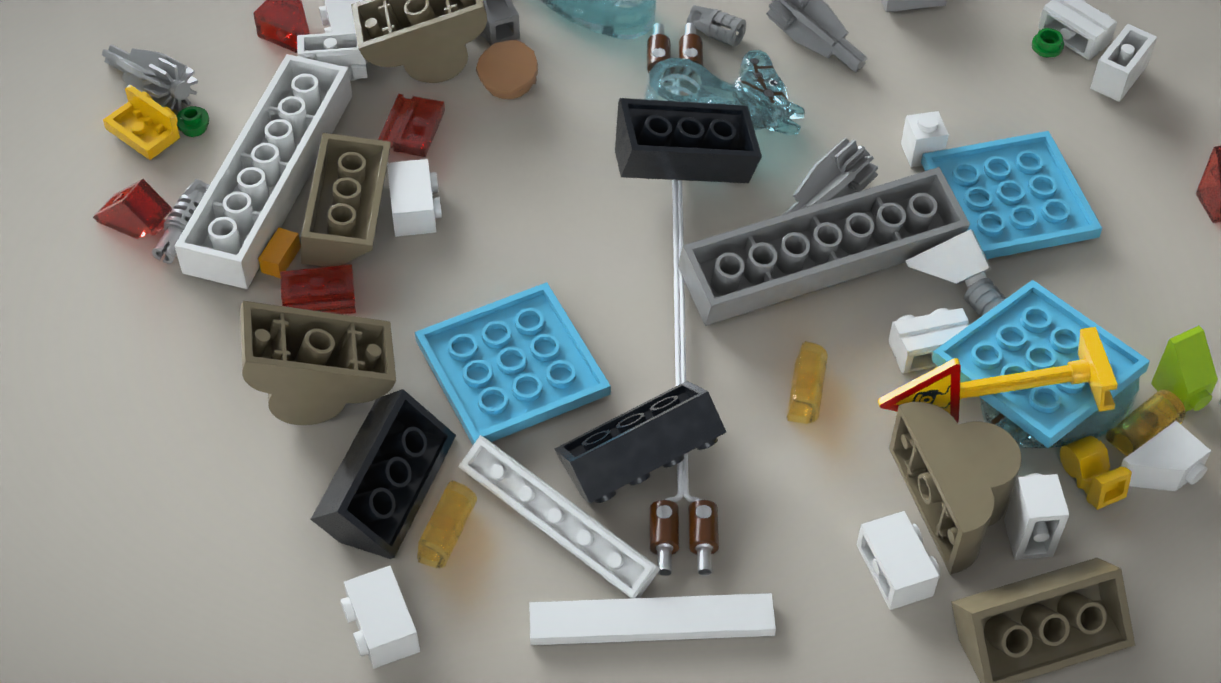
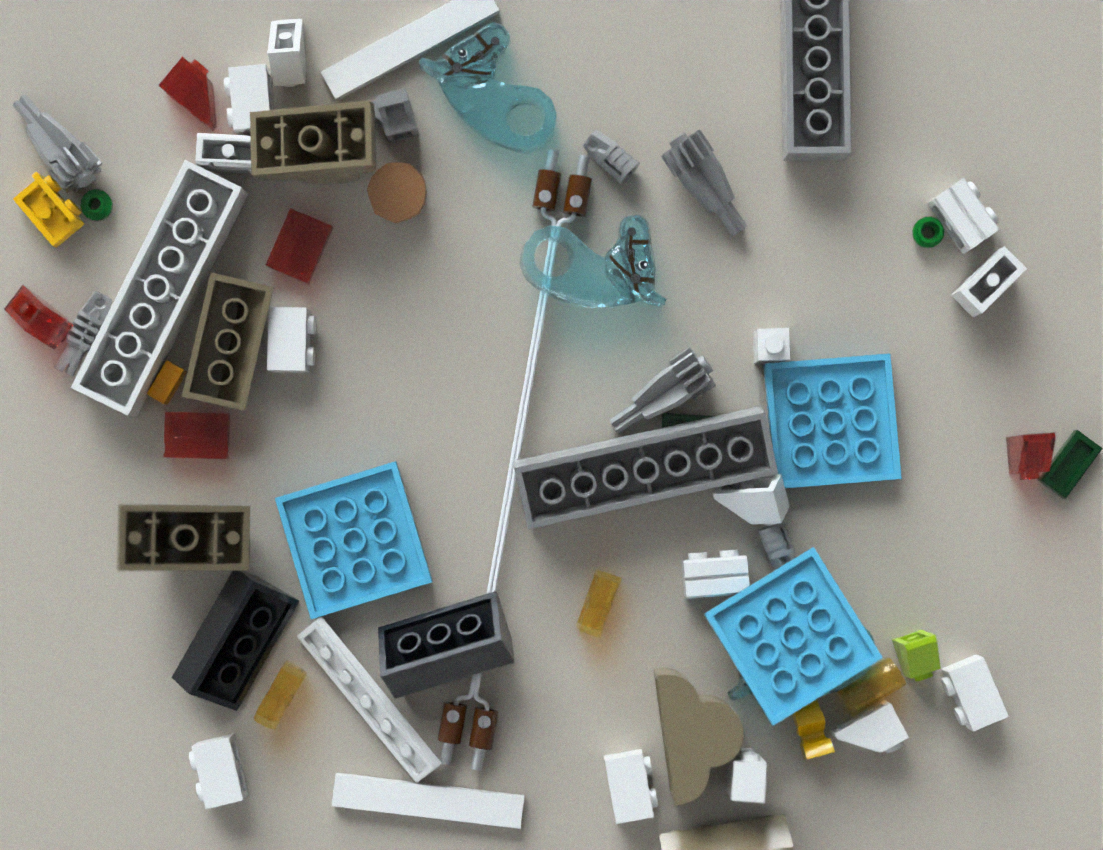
camera: 10 degrees right, 35 degrees up
(685, 141) = (544, 329): black slope -> none
(945, 390) = (824, 672): yellow piece -> none

